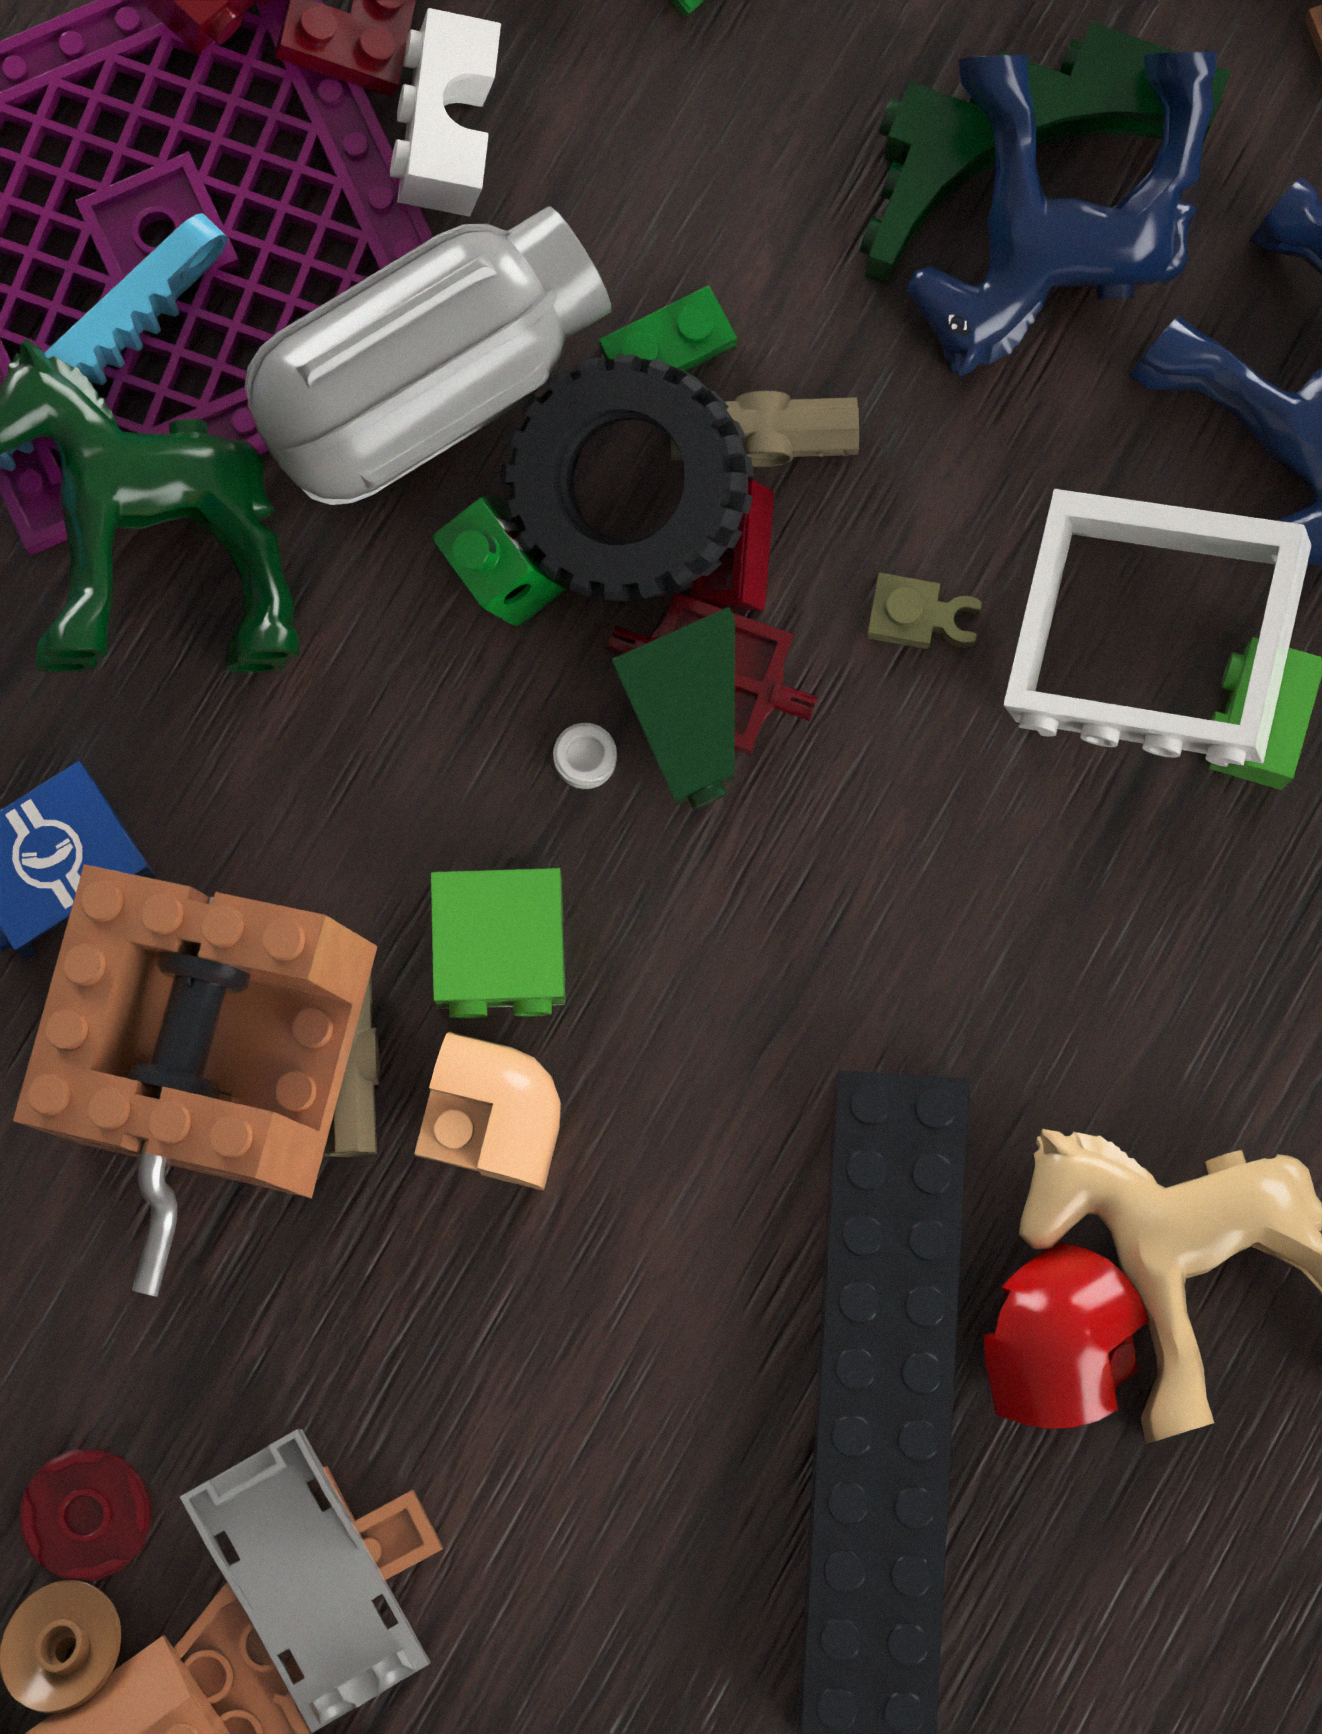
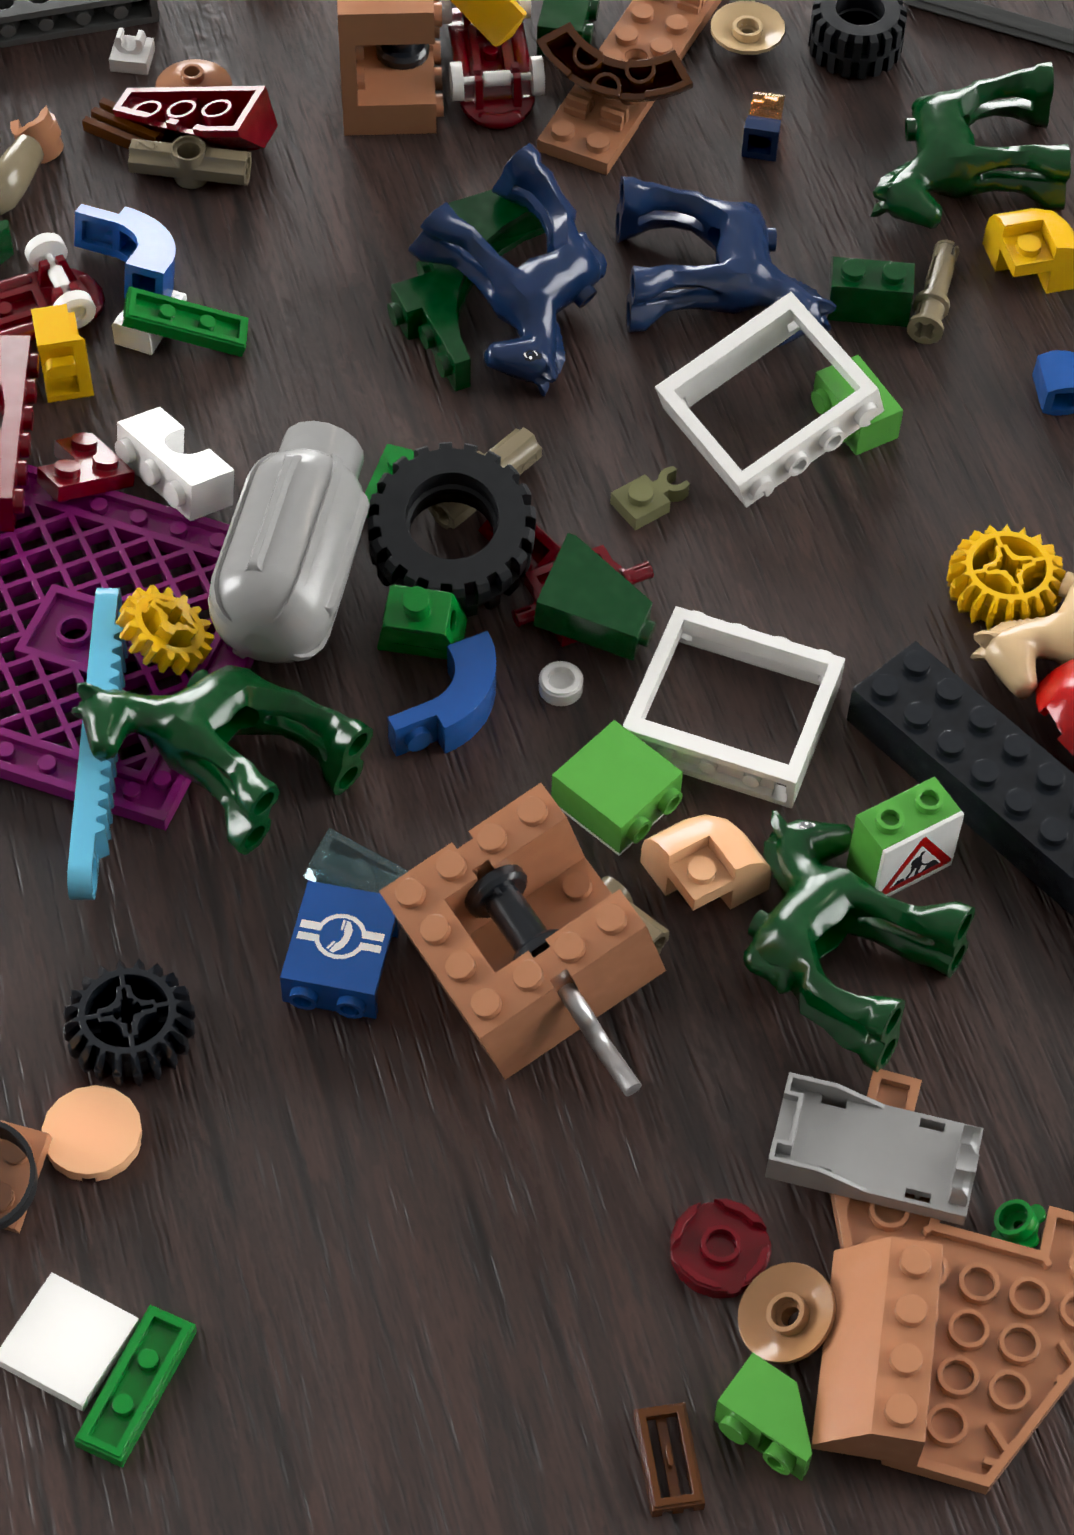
camera: 45 degrees left, 25 degrees down
(162, 782) = (350, 865): none -> clear light blue slope
(205, 309) = (165, 629): none -> yellow gear
(454, 693) = (460, 709): none -> blue arch
(523, 1284) = (817, 915): none -> dark green animal
(702, 1289) = (905, 838): none -> piece
(810, 889) = (720, 762): none -> white window
(1205, 1098) = (1009, 570): none -> yellow gear

